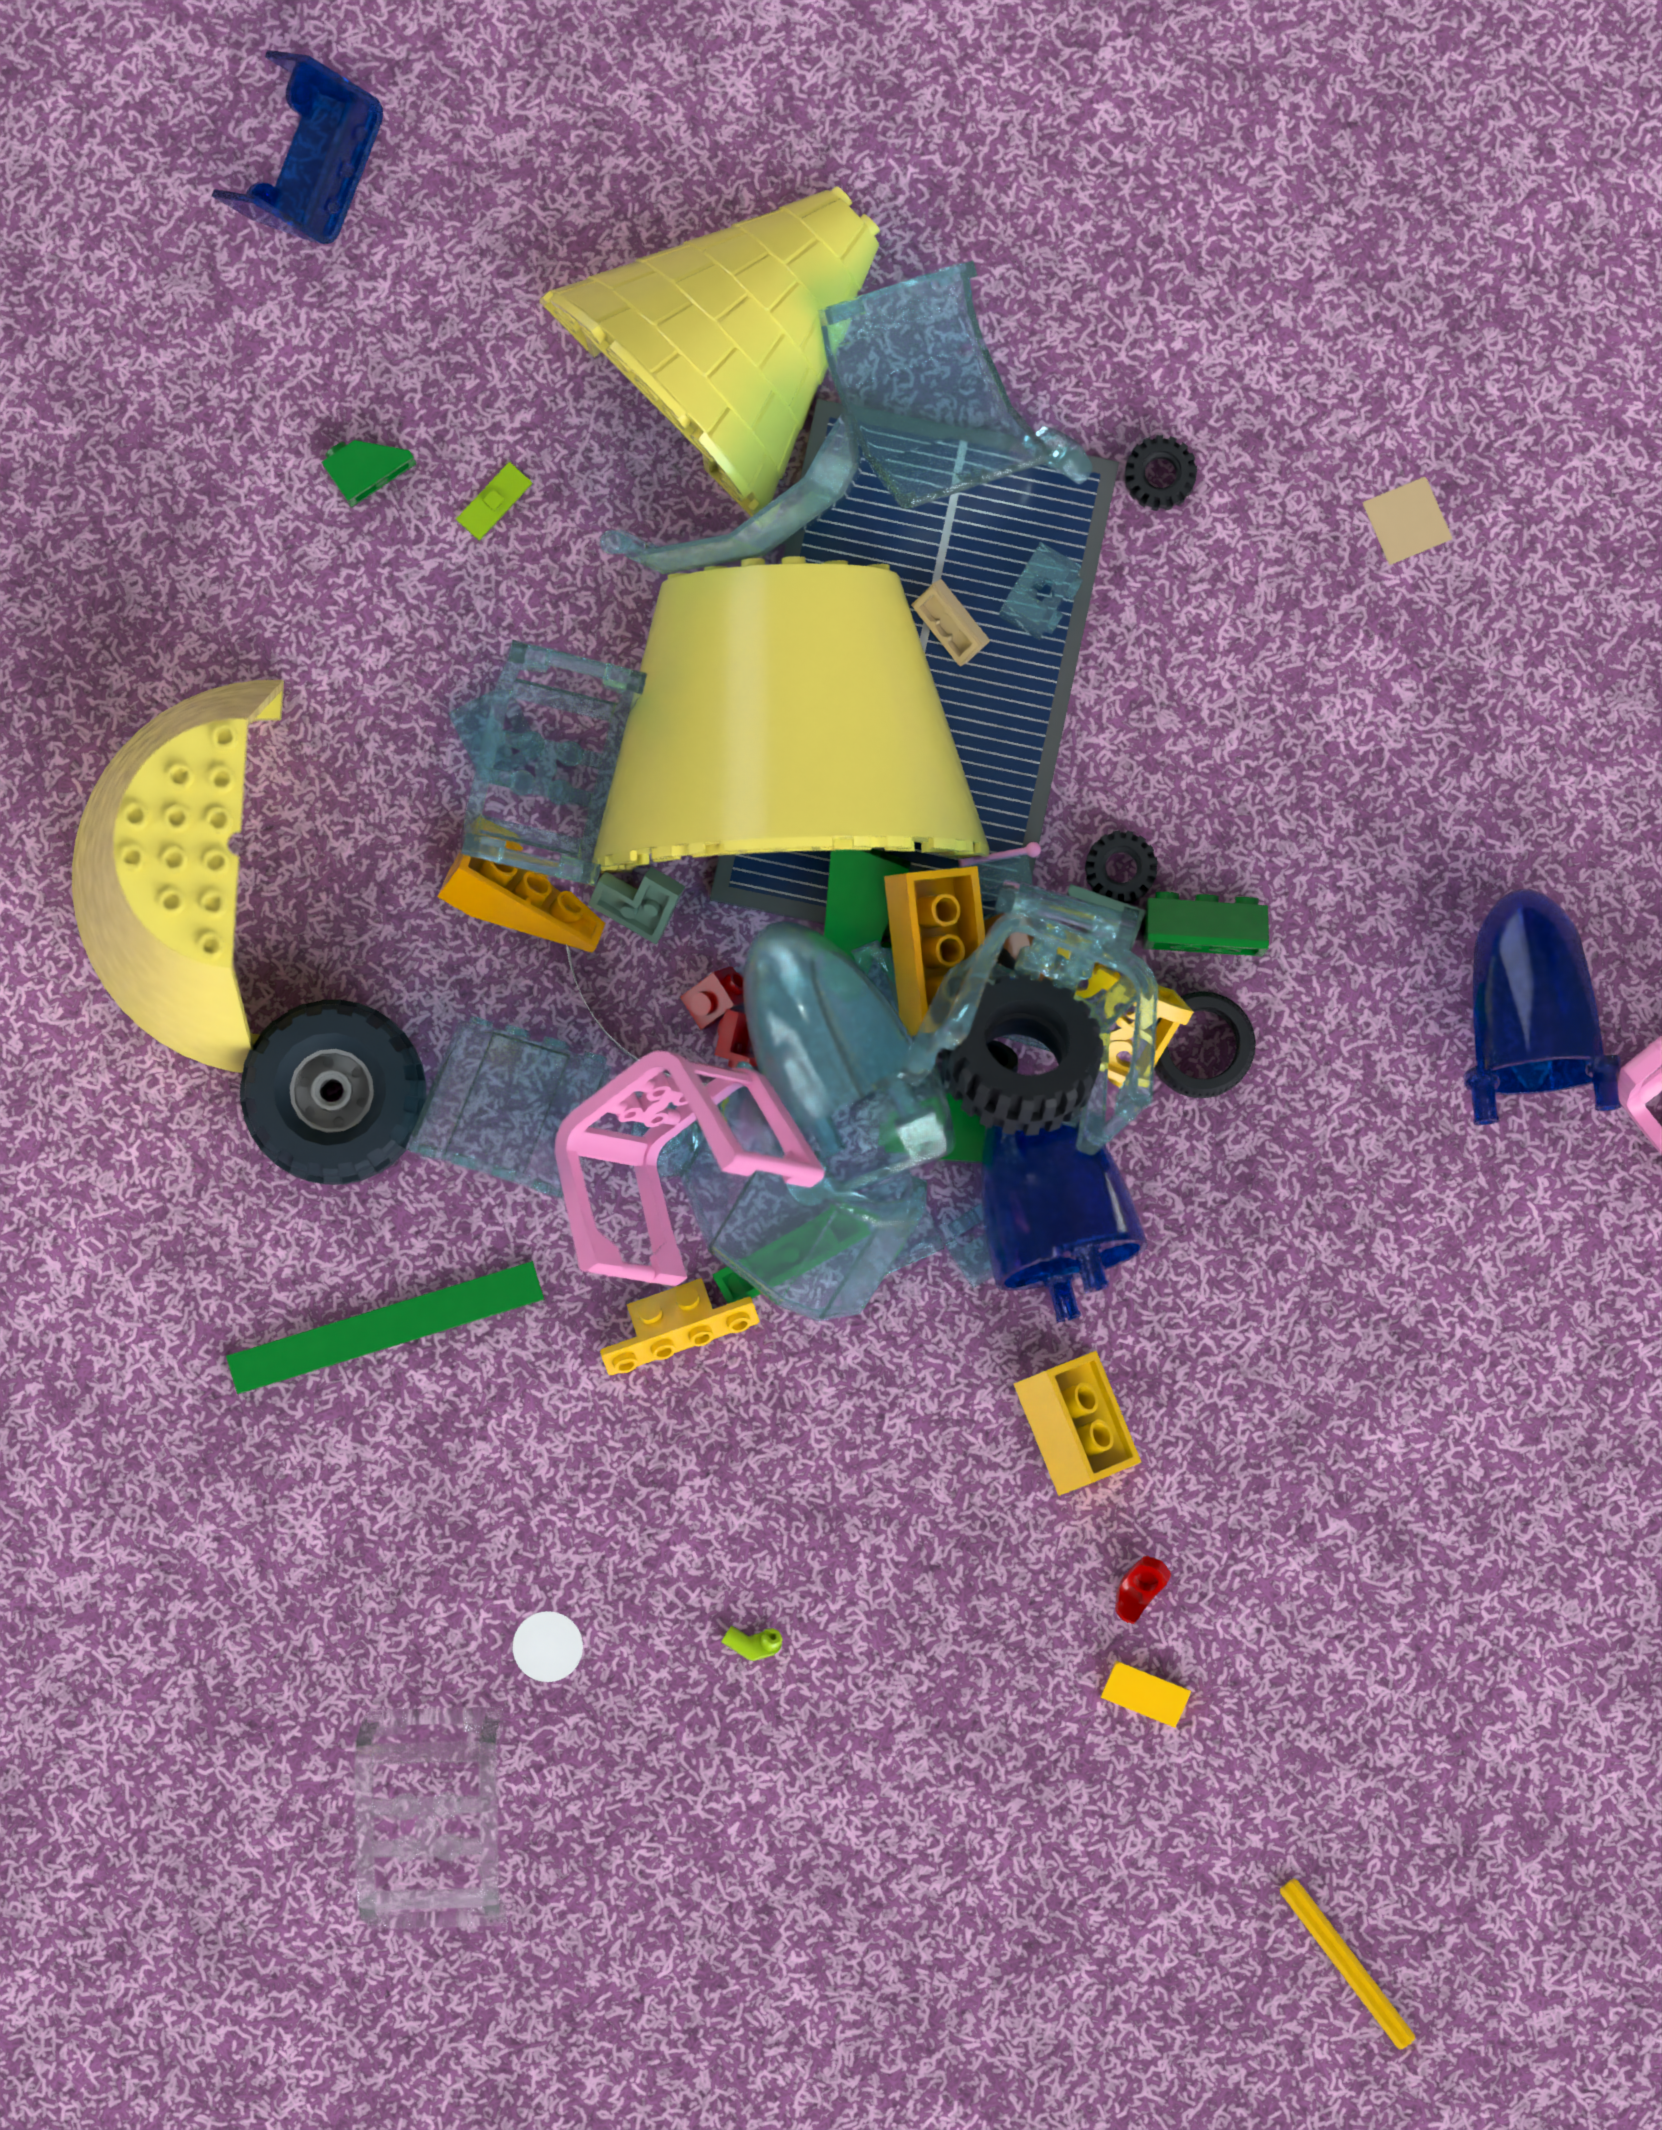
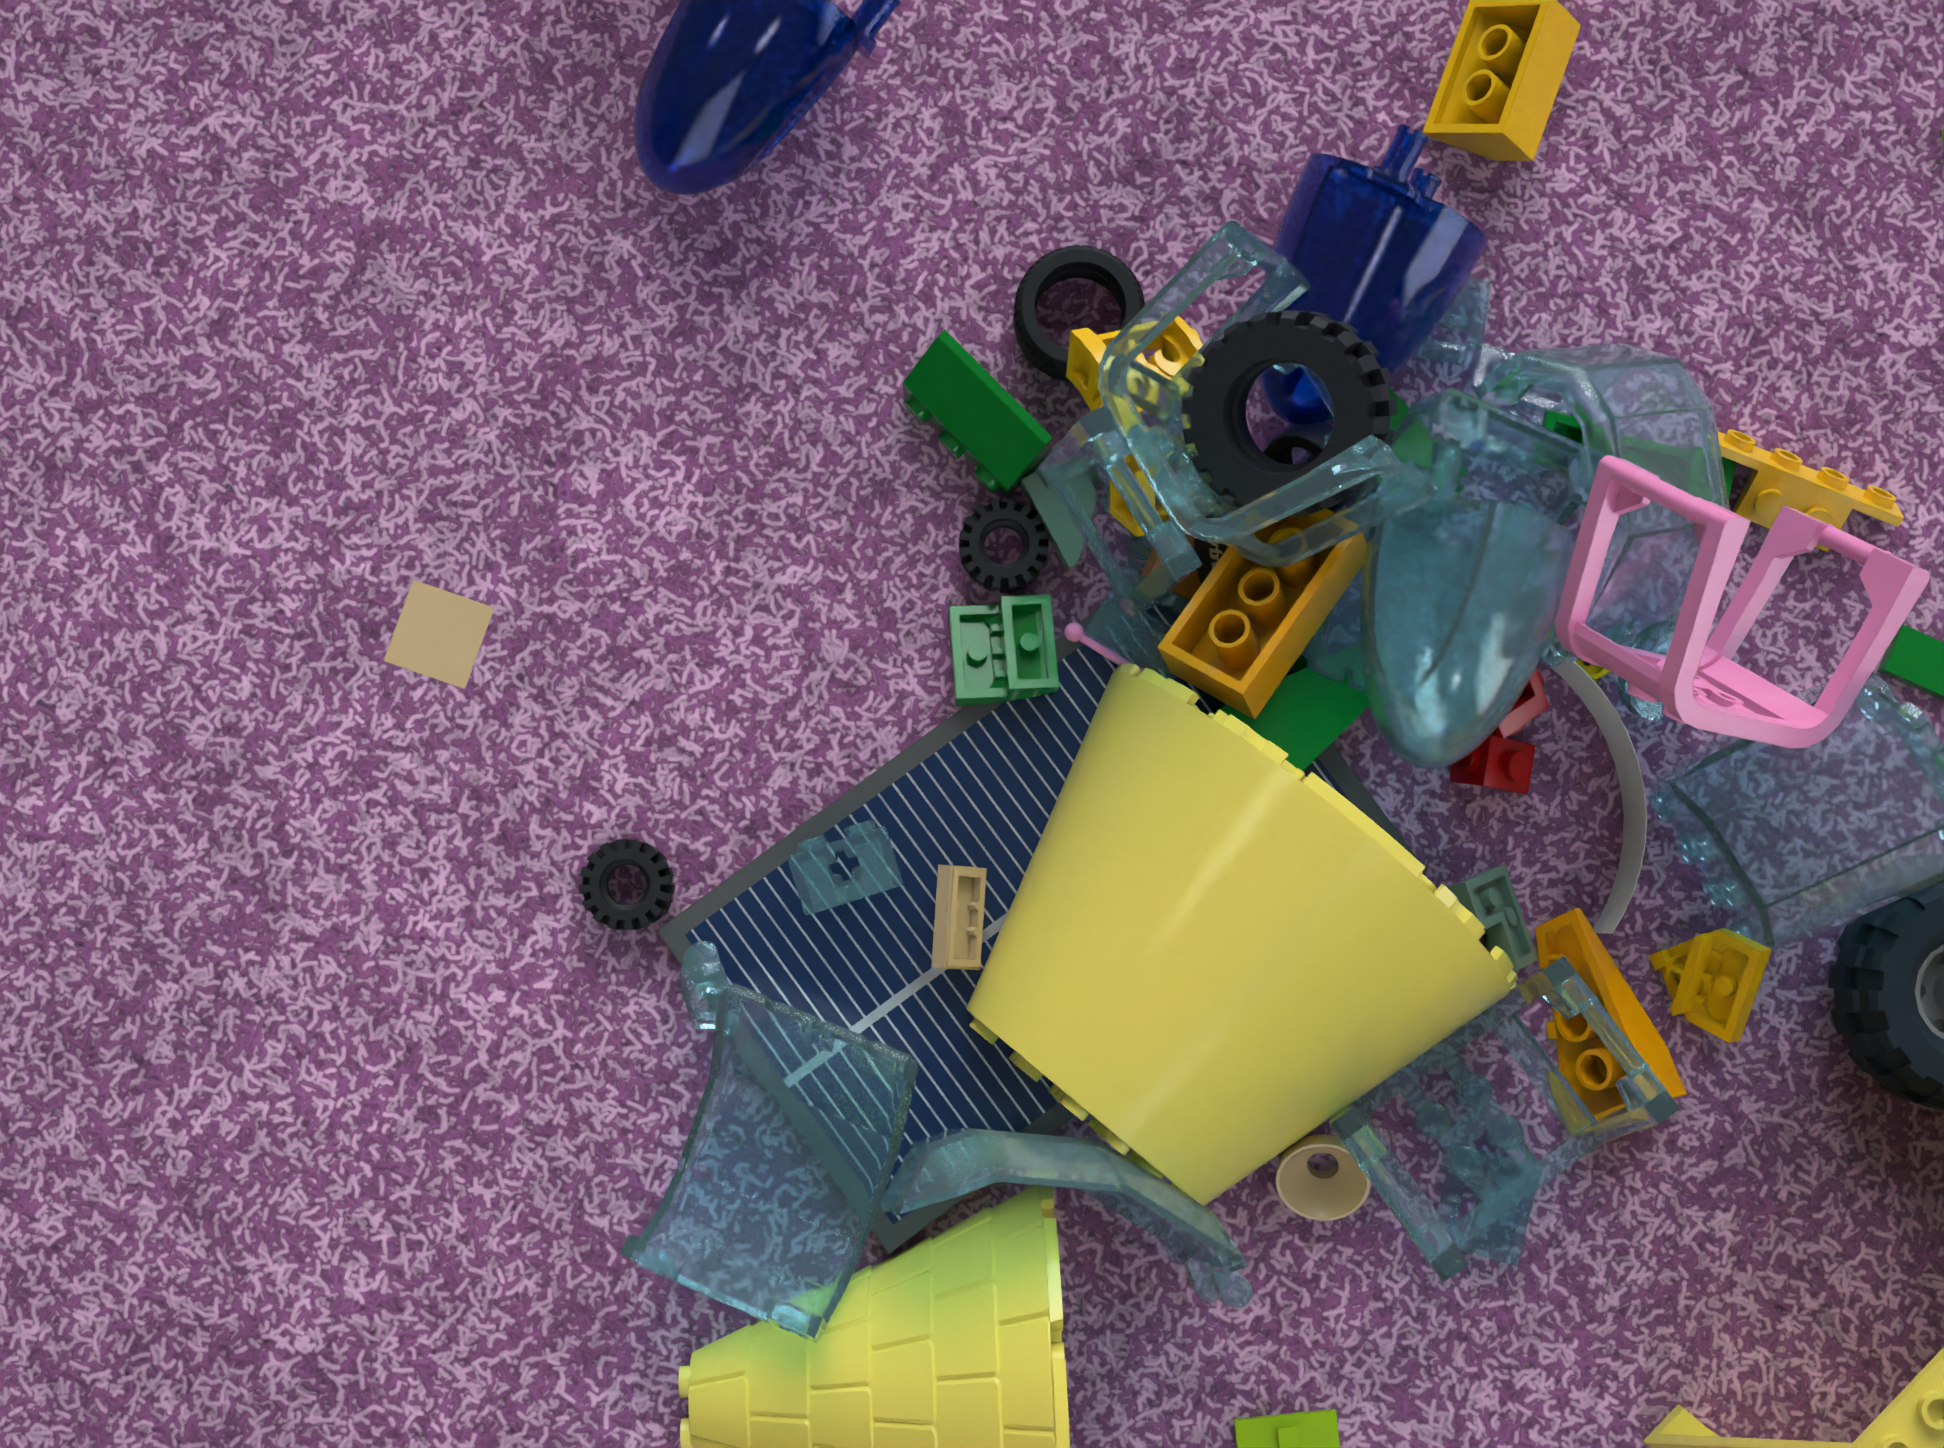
camera: 140 degrees left, 0 degrees up
(476, 980) = (1714, 980): none -> yellow slope
(609, 647) = (1316, 1192): none -> tan piece
(1065, 803) = (1003, 650): none -> green slope

